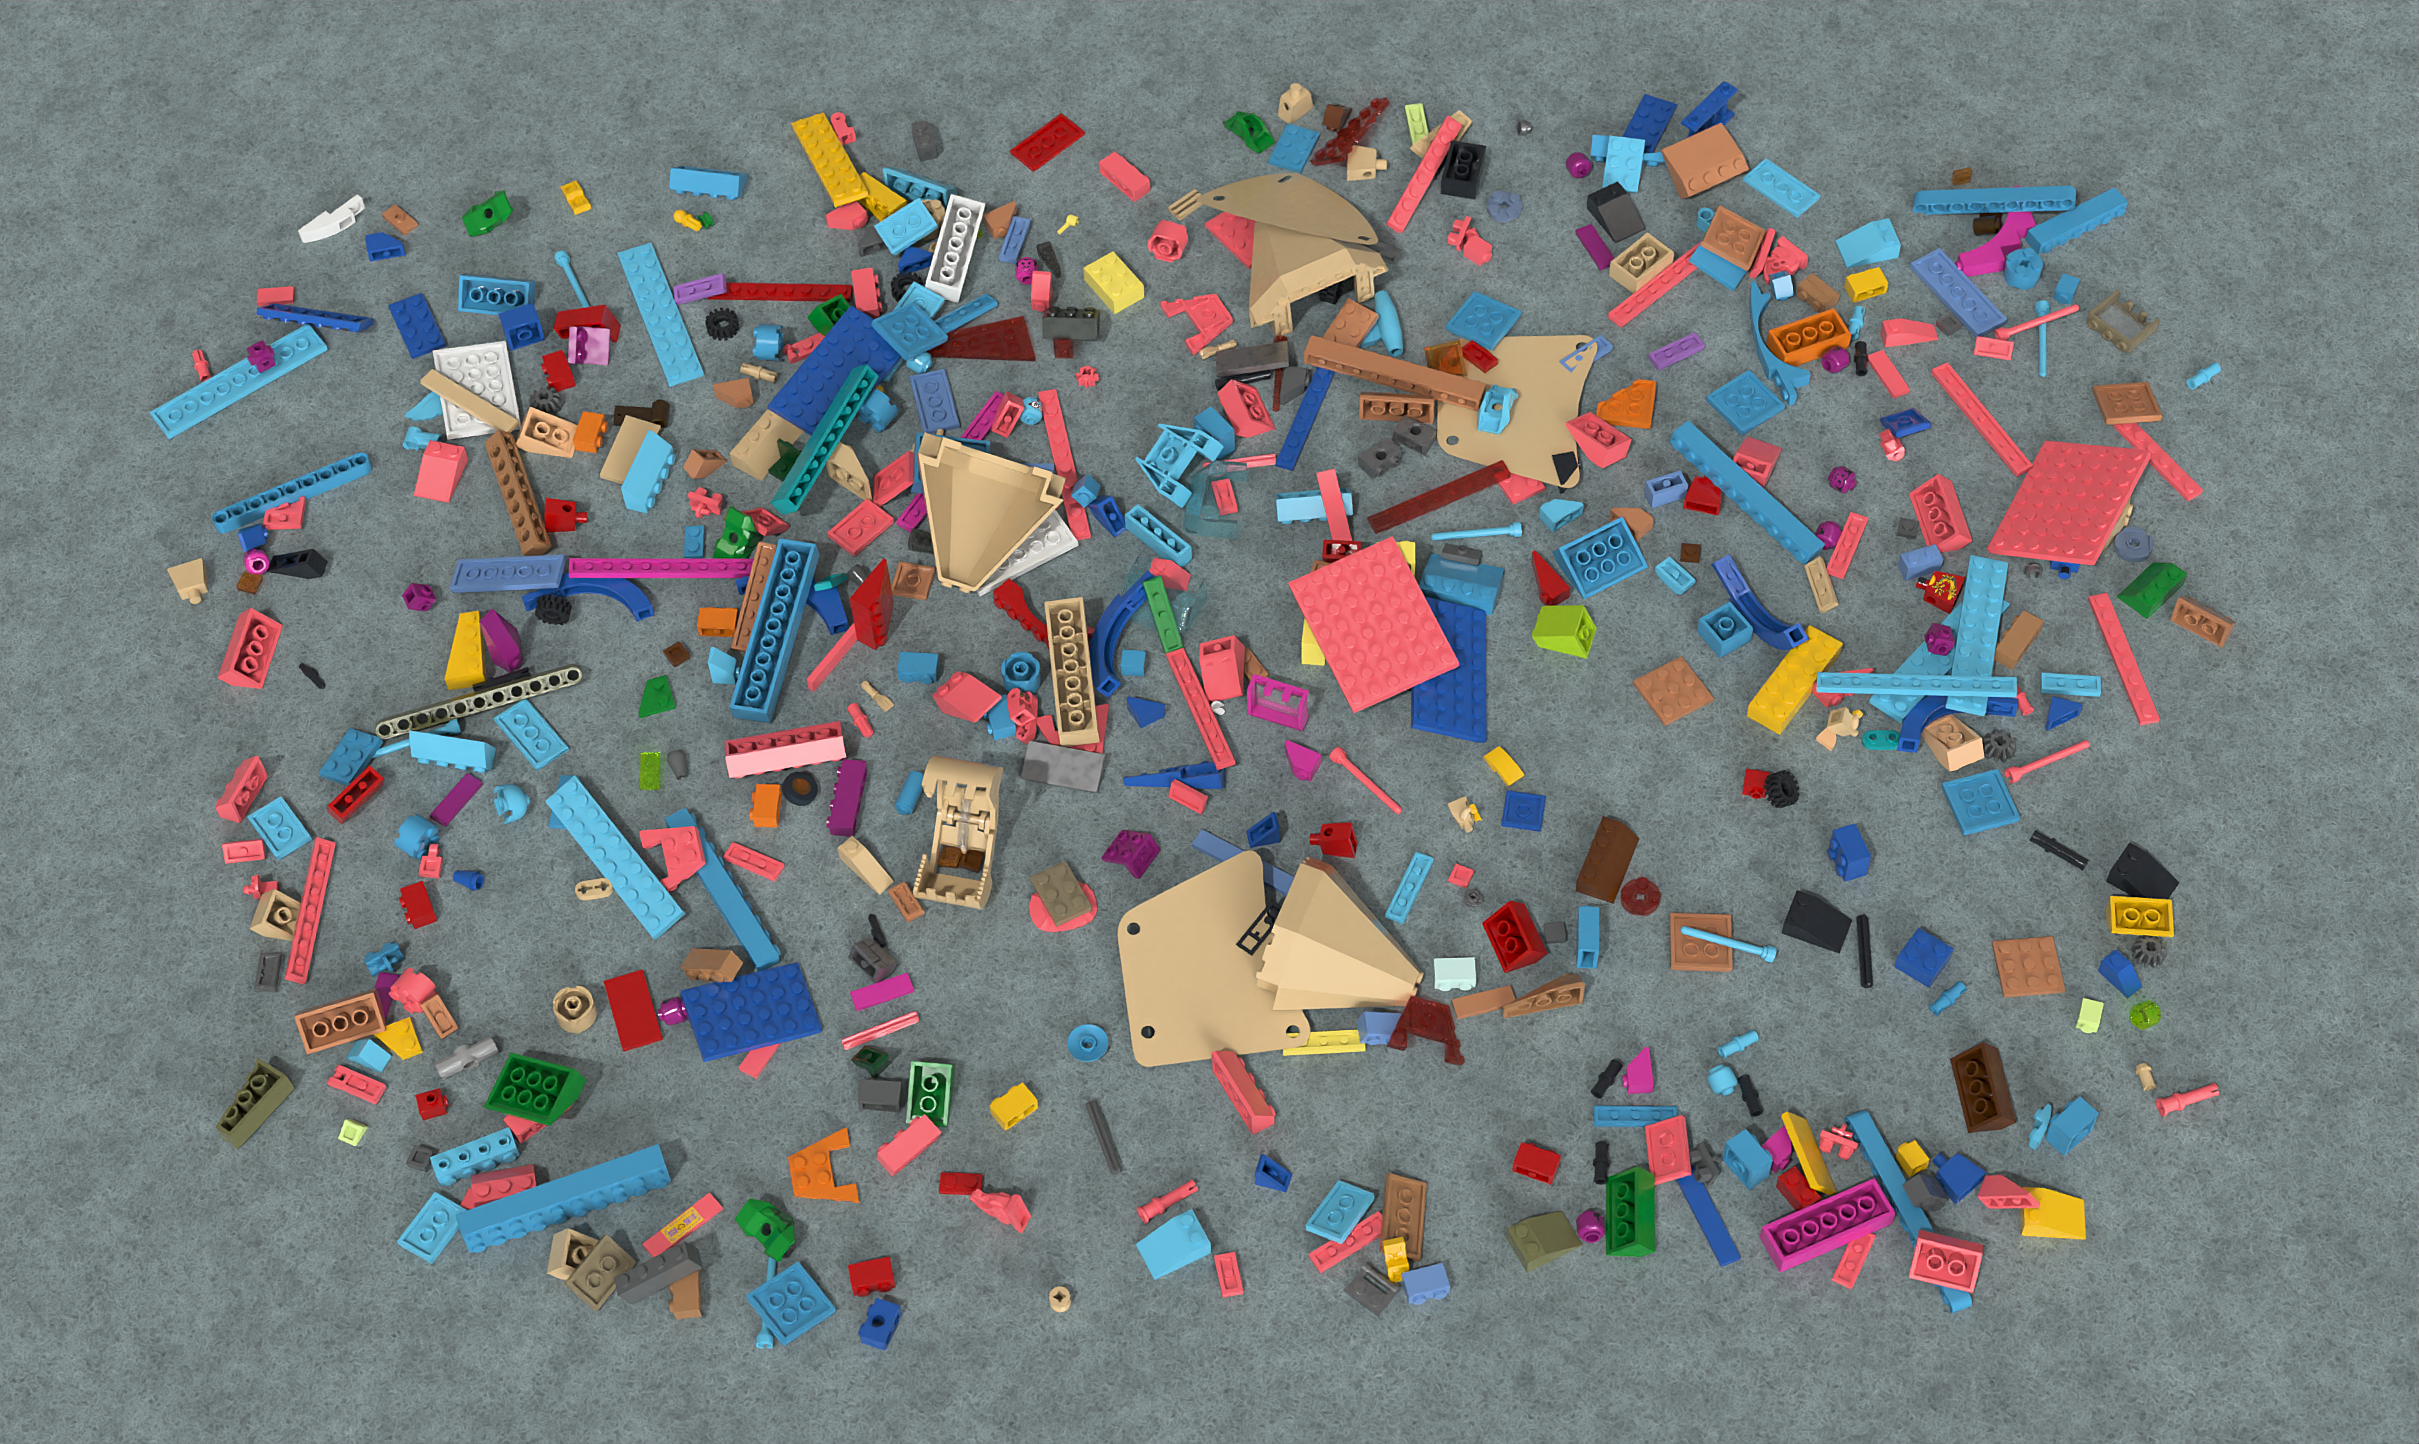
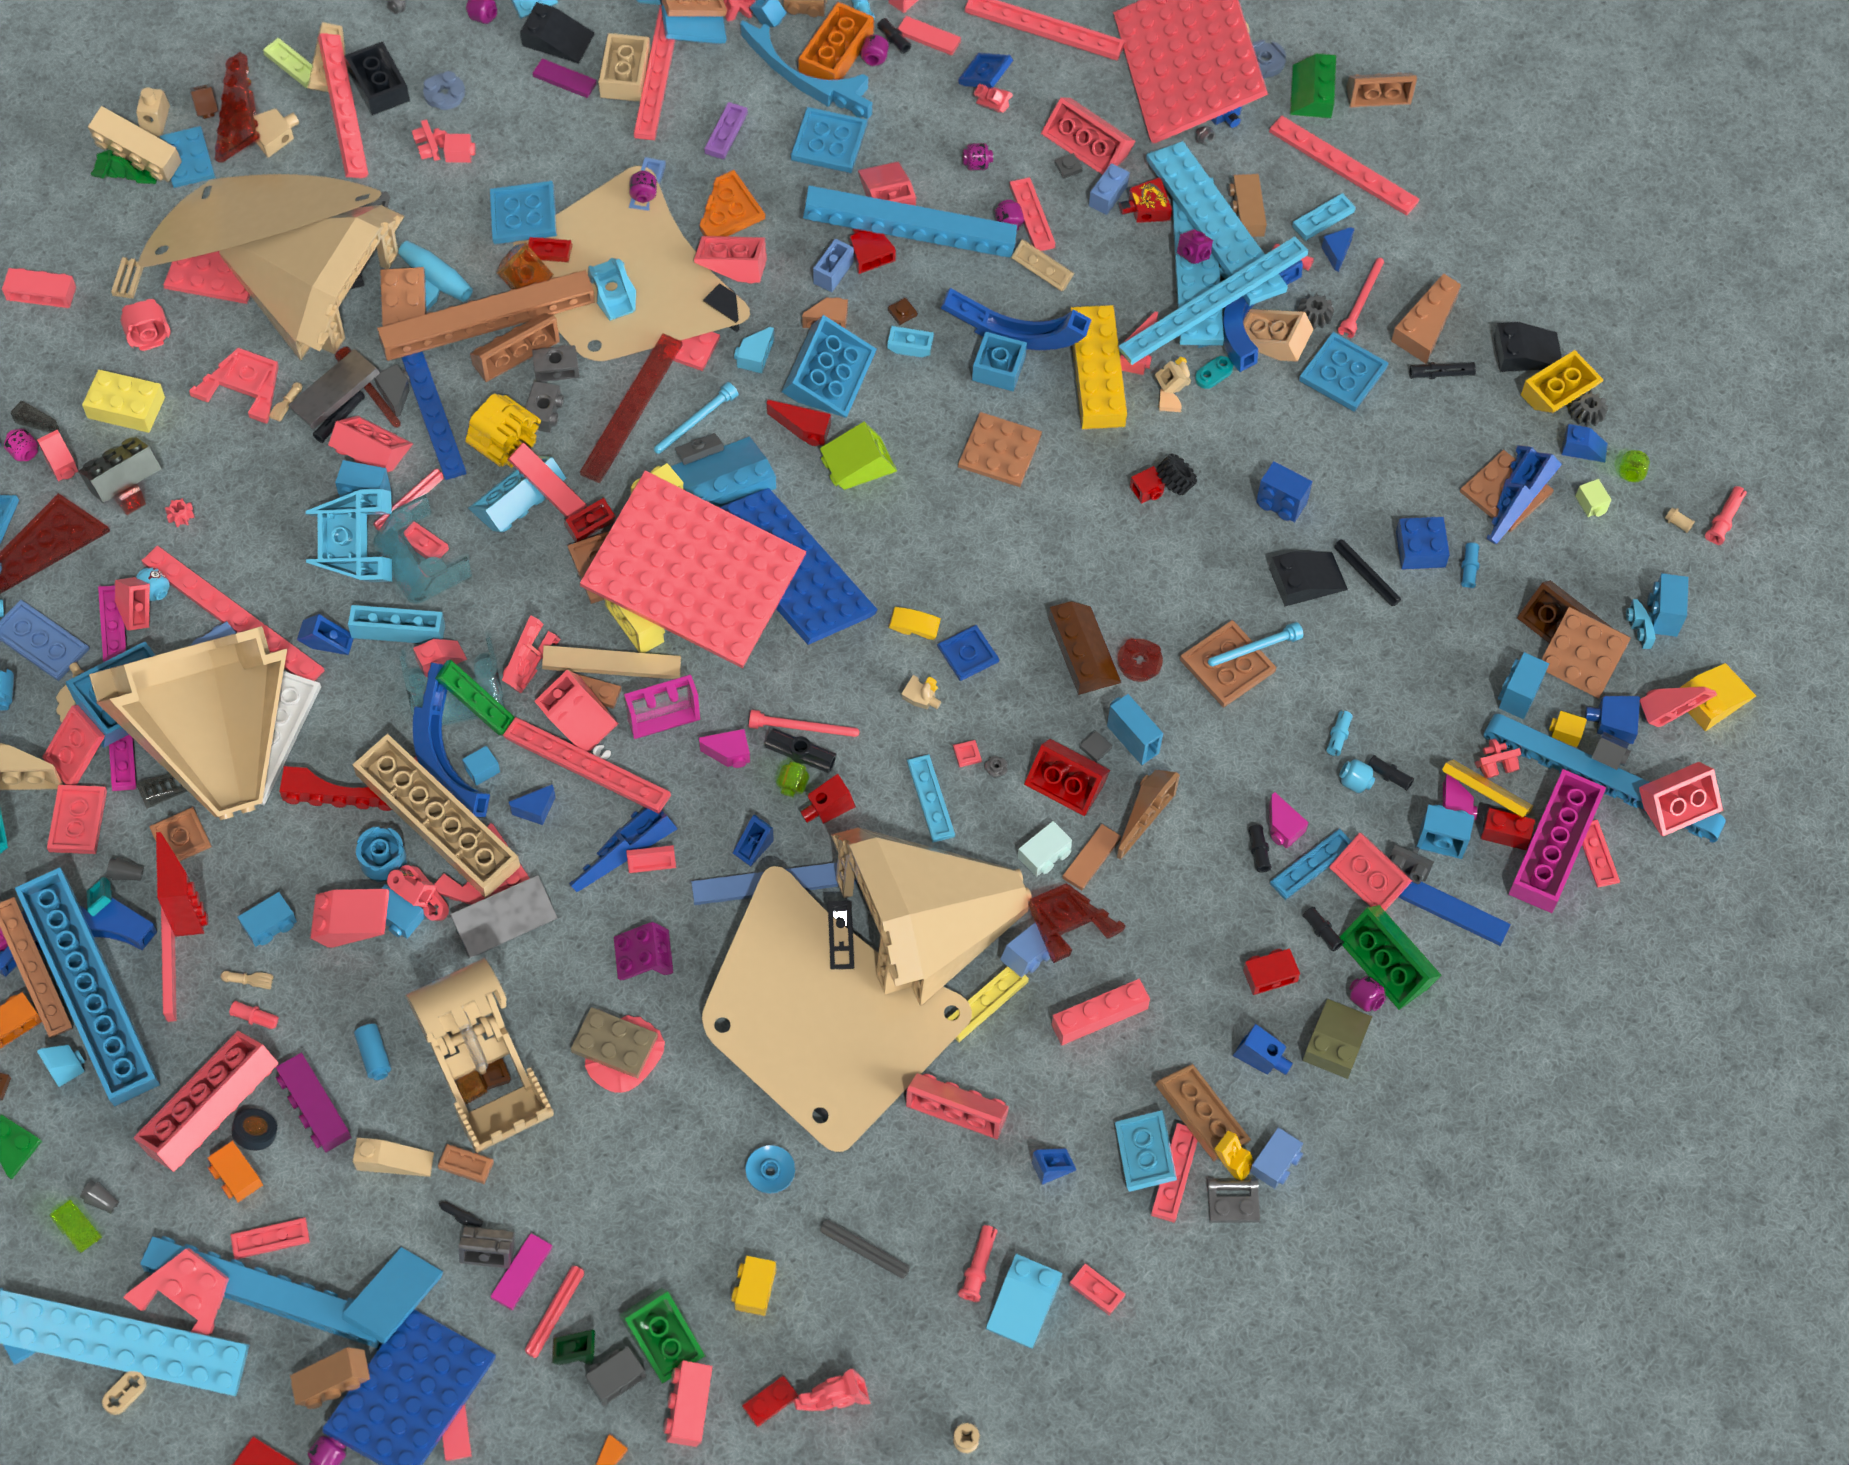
camera: 45 degrees left, 5 degrees up
(791, 945) = (392, 1295): none -> dark azure tile
(1071, 220) = (21, 366): light yellow hand -> none
(1085, 490) = (282, 626): dark azure brick -> none
(1214, 613) = (526, 657): none -> coral wing
(1257, 117) = (134, 144): none -> tan brick
(1275, 654) = (611, 662): none -> tan tile
(1326, 810) = (792, 779): none -> clear neon green head
(1336, 449) = (499, 427): none -> yellow piece
(1344, 787) = (788, 744): none -> black piece
(1393, 1103) = (1100, 1012): none -> coral brick
(1471, 1198) = (1262, 1051): none -> blue torso
(1577, 352) = (643, 186): none -> magenta head
(1902, 1103) = (1522, 685): none -> dark azure brick
(1972, 1113) = (1585, 652): none -> nougat plate
(2048, 966) = (1528, 477): none -> blue wedge
(2081, 806) = (1425, 321): none -> nougat wedge

